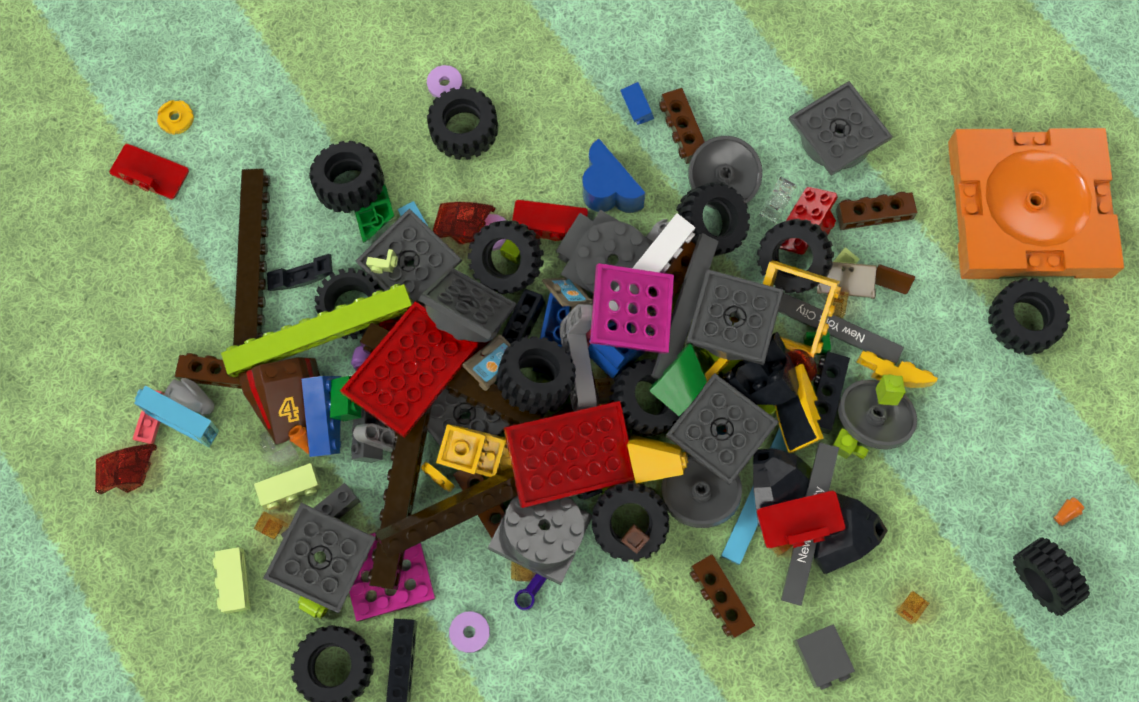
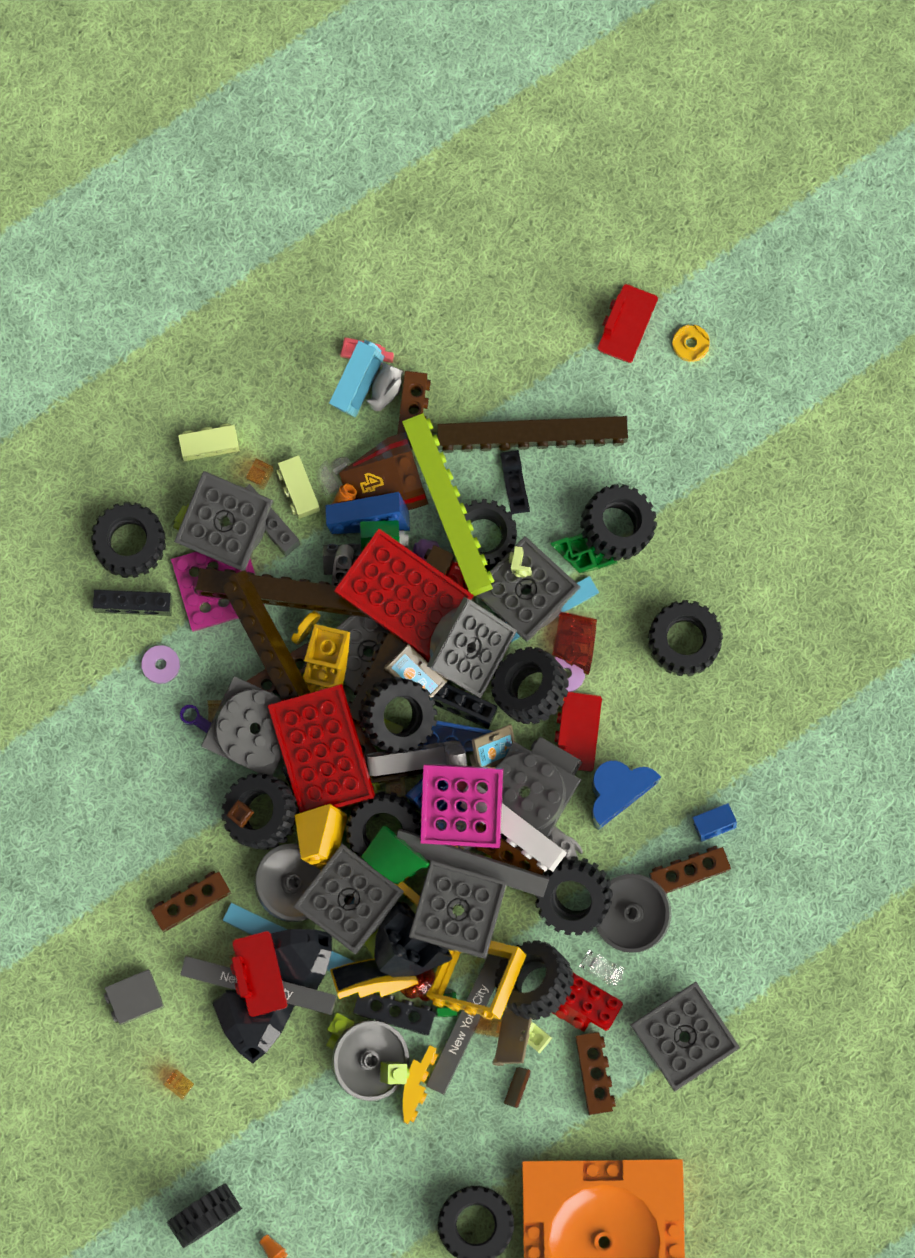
camera: 85 degrees right, 5 degrees up
(123, 468) = (315, 332): clear red slope -> none
(443, 73) = (737, 629): lavender tile -> none

